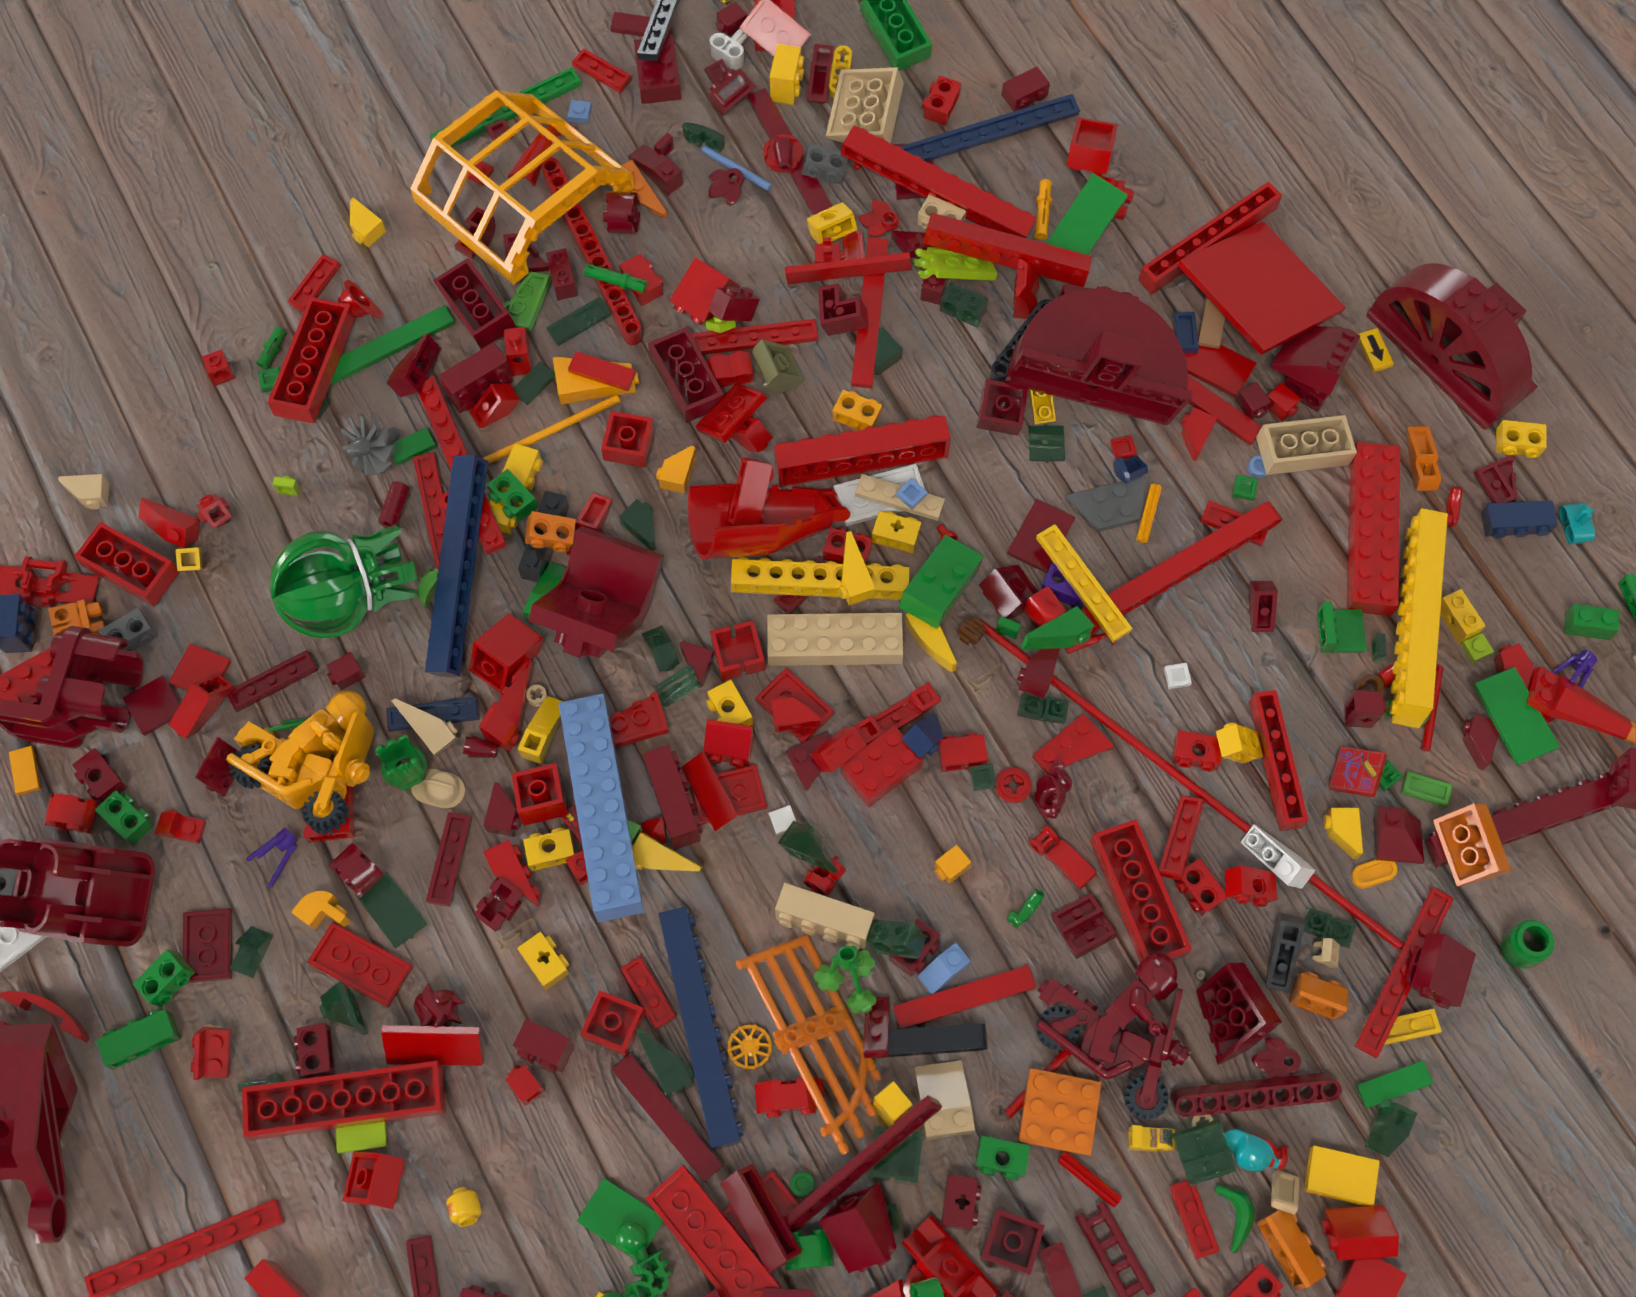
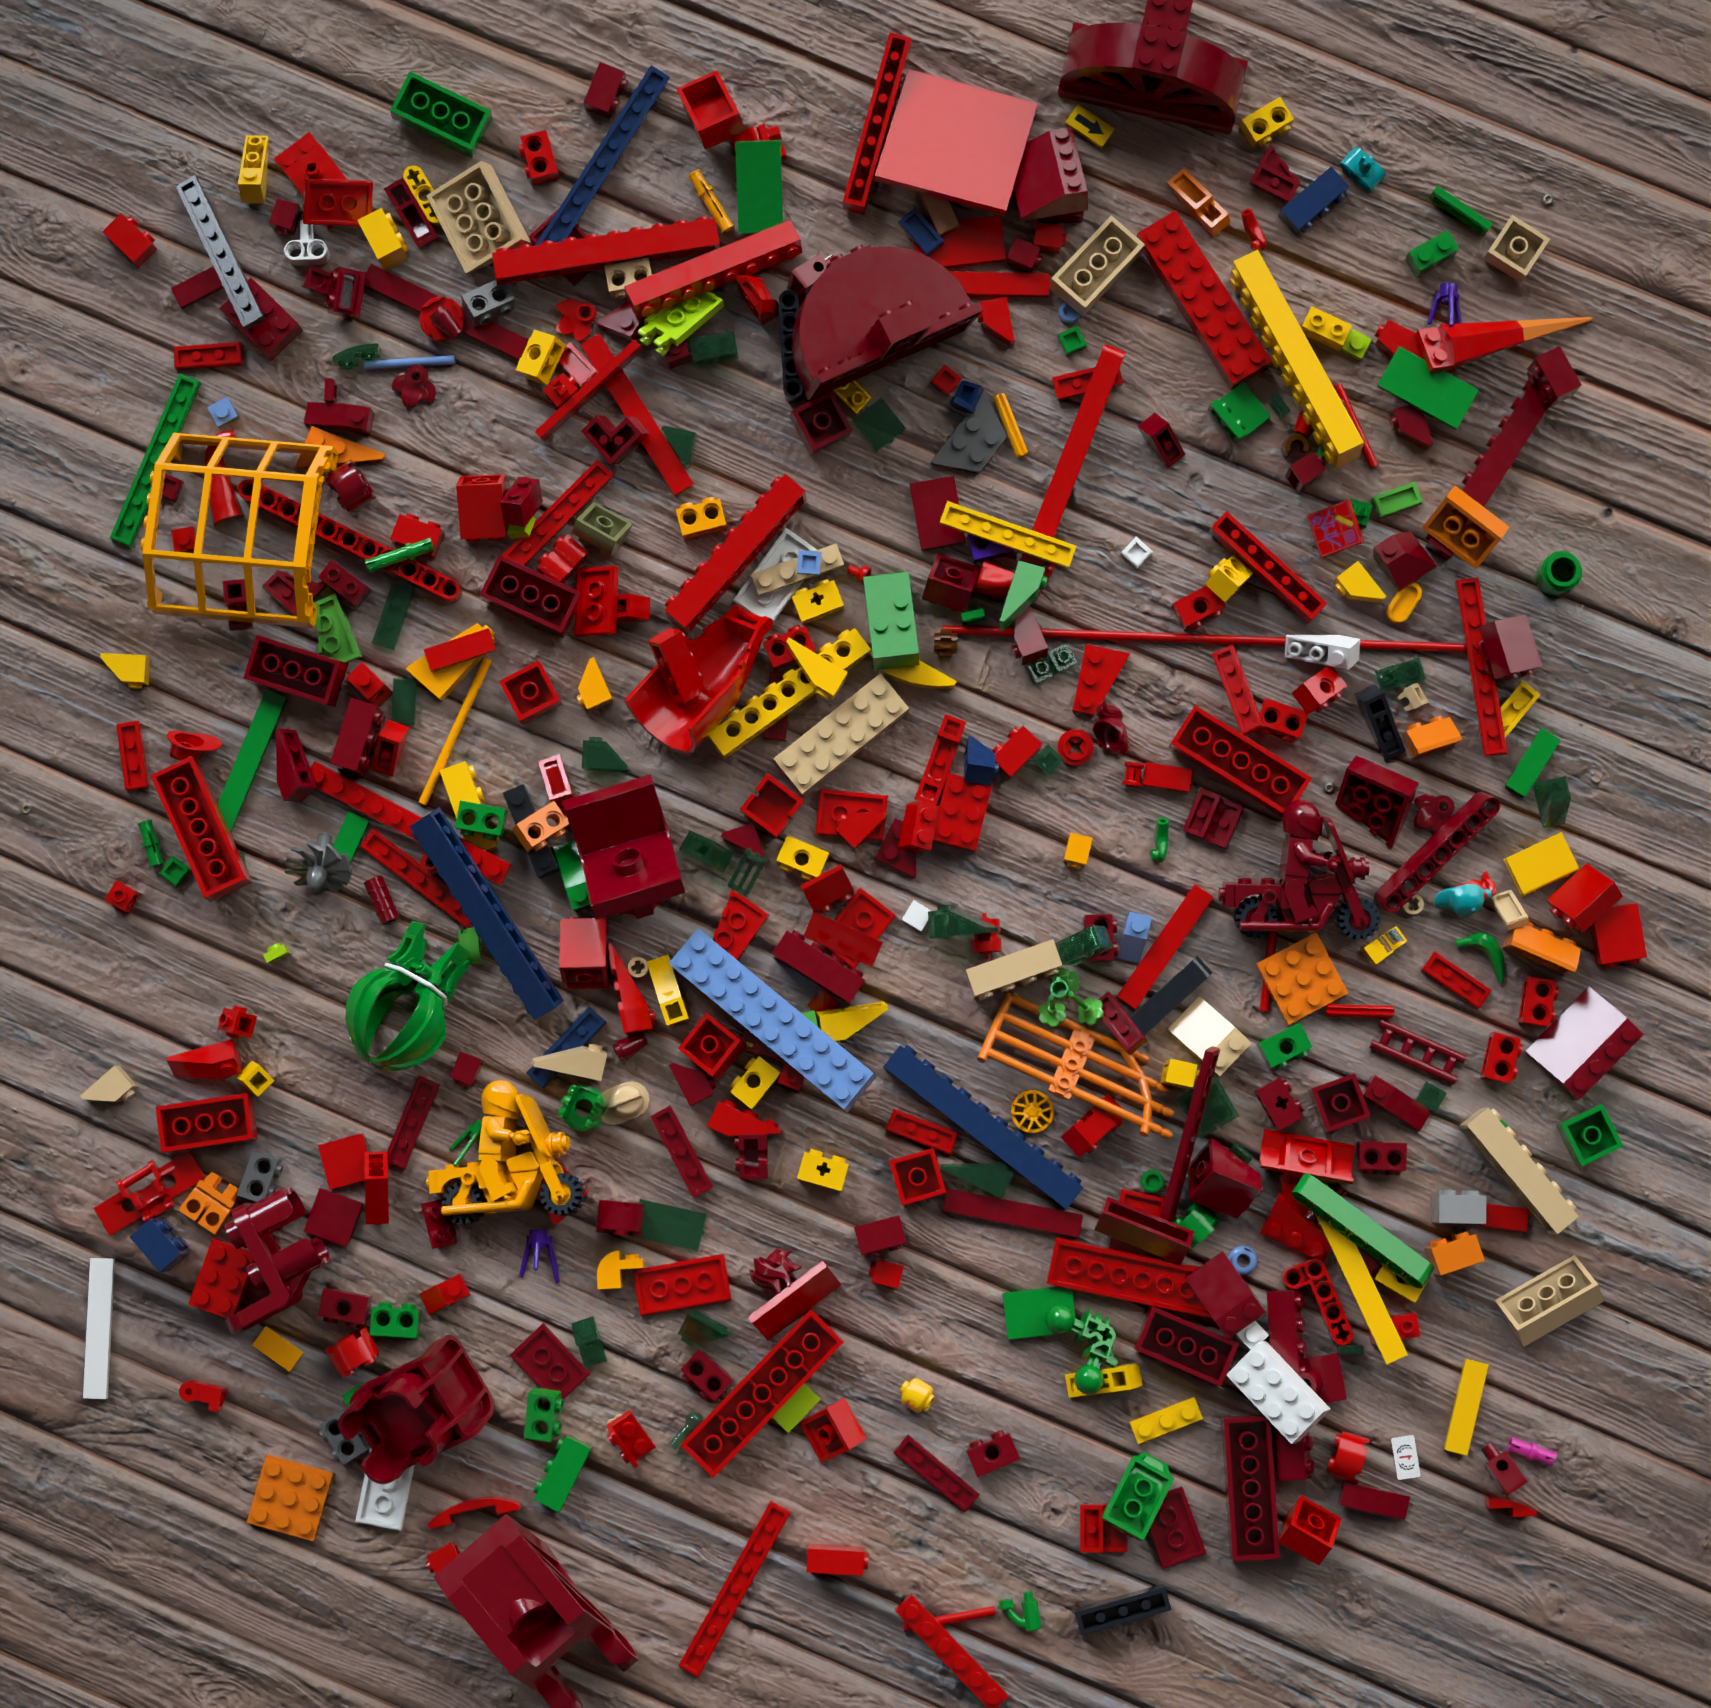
camera: 35 degrees left, 15 degrees up
(1204, 1152) = (1430, 926): clear green slope -> none

